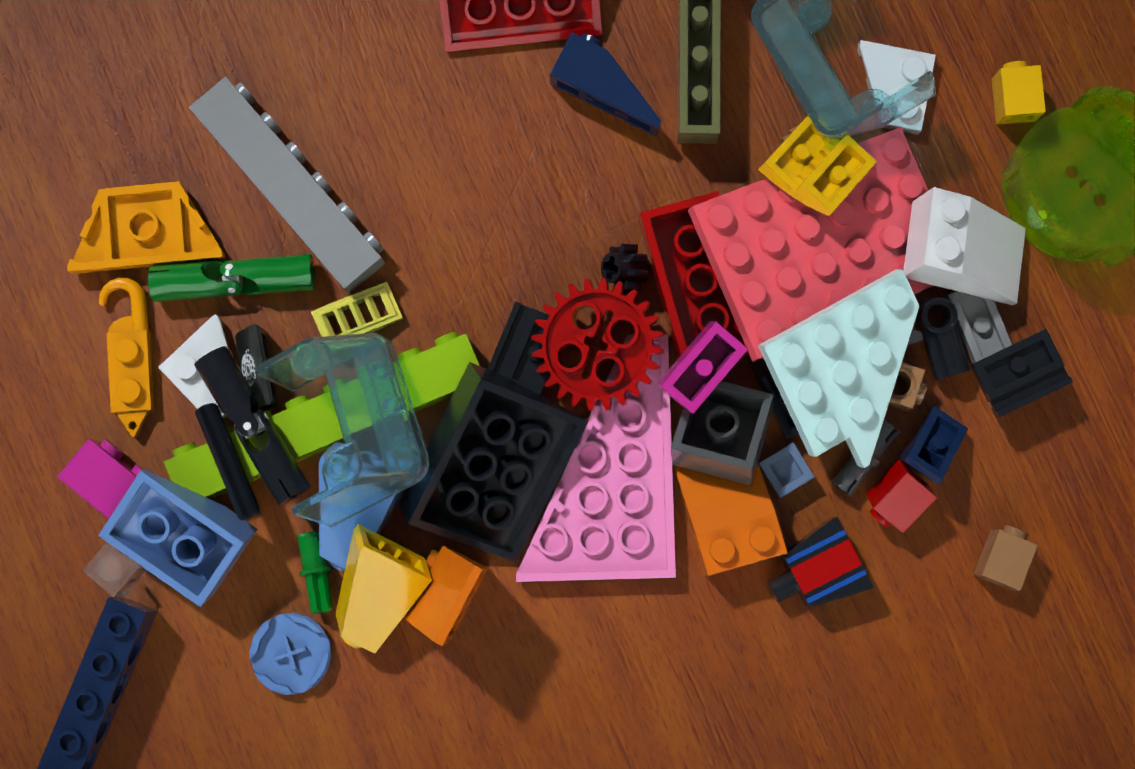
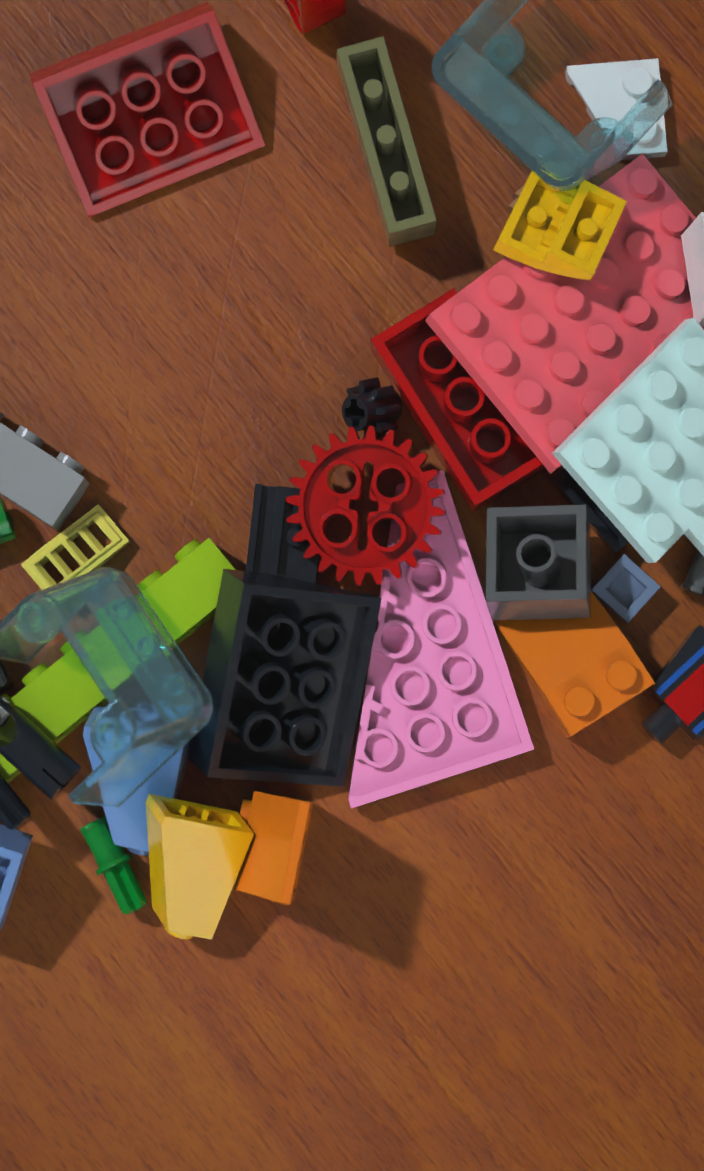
camera: 15 degrees left, 0 degrees up
(290, 653) = (113, 968): medium blue tile -> none
(596, 78) = (274, 198): dark blue slope -> none
(702, 366) = (495, 496): dark pink brick -> none

